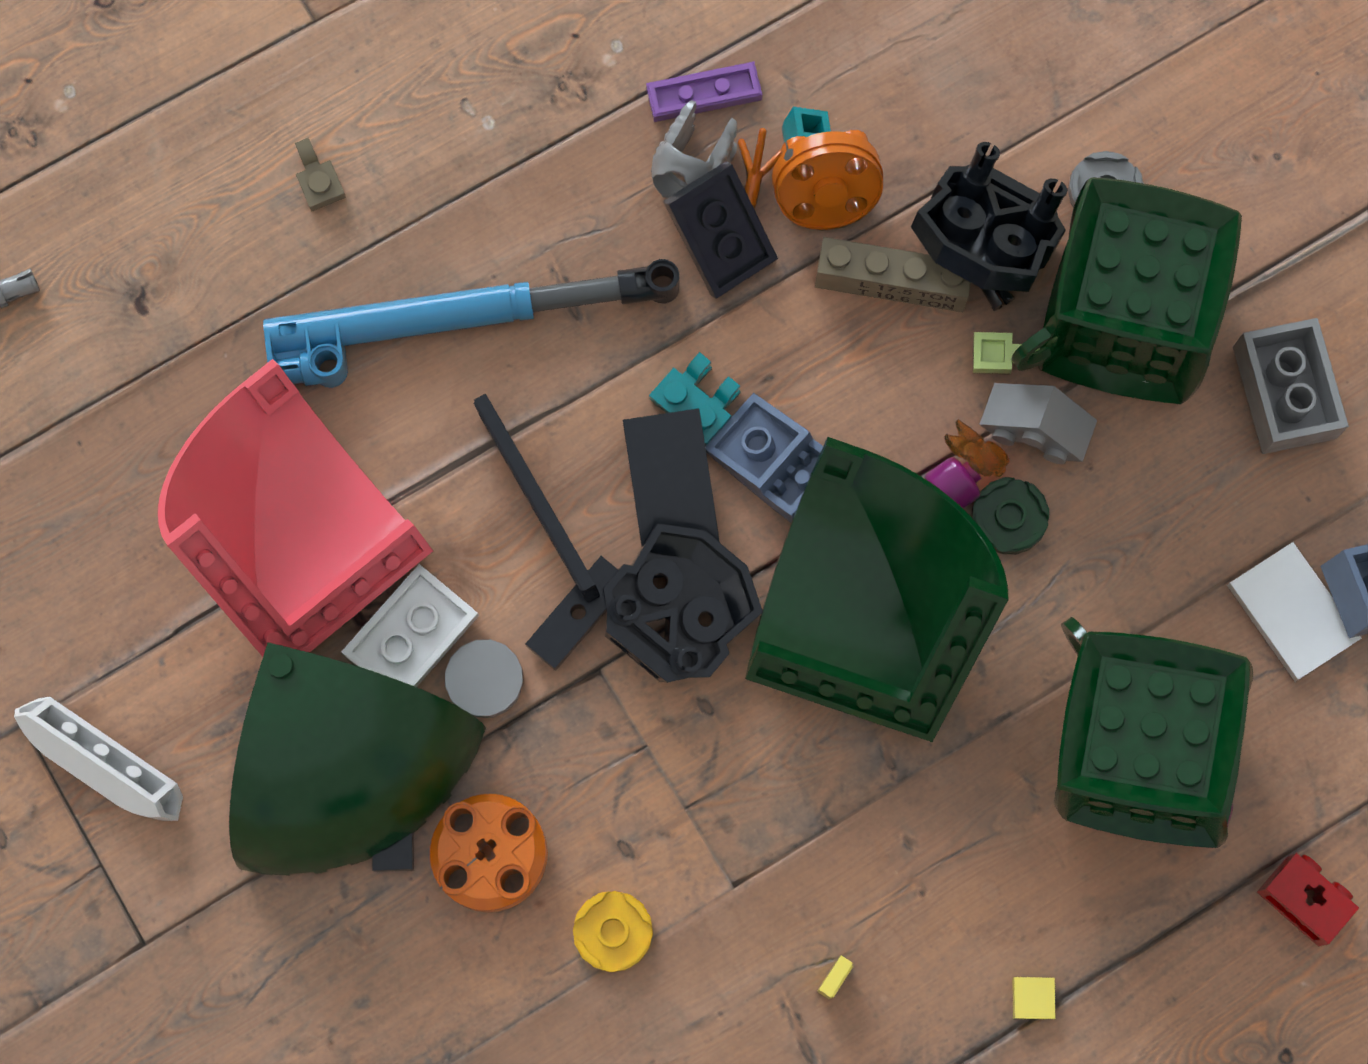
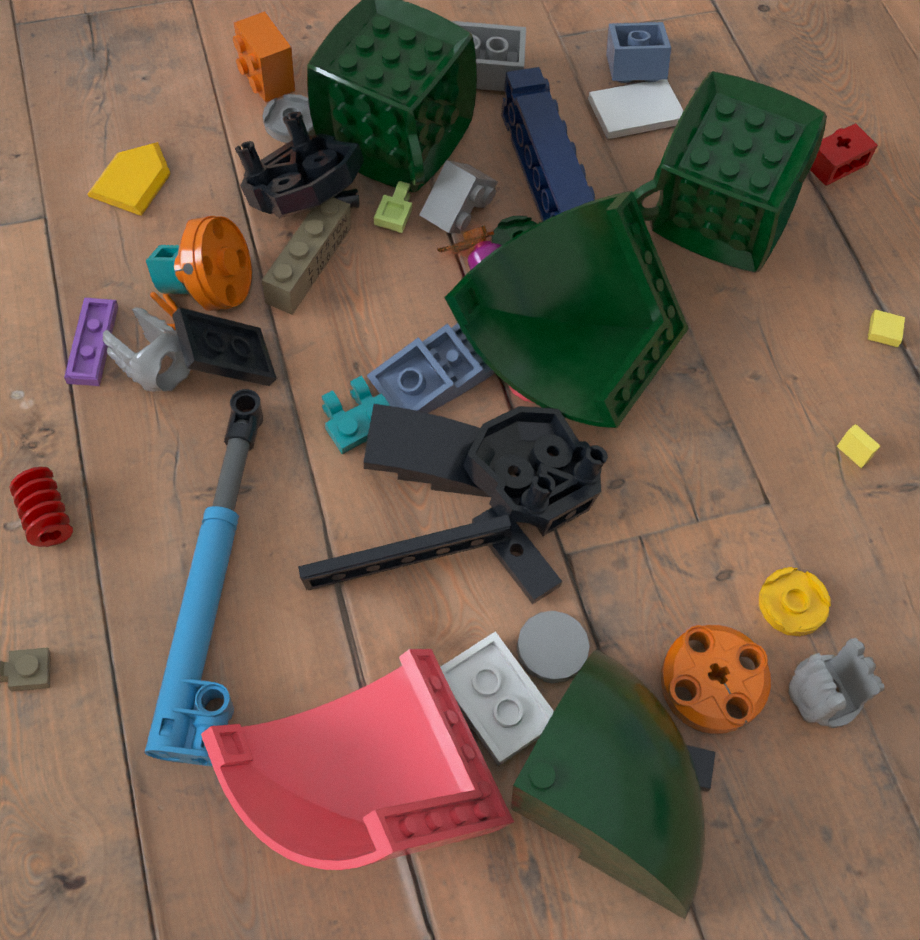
camera: 80 degrees left, 15 degrees down
(480, 969) = (819, 676): none -> light grey piece
(483, 123) = (40, 507): none -> red piece
(944, 45) = (132, 179): none -> yellow tile
(1126, 518) = (543, 144): none -> dark blue brick
(1172, 121) = (264, 56): none -> orange brick

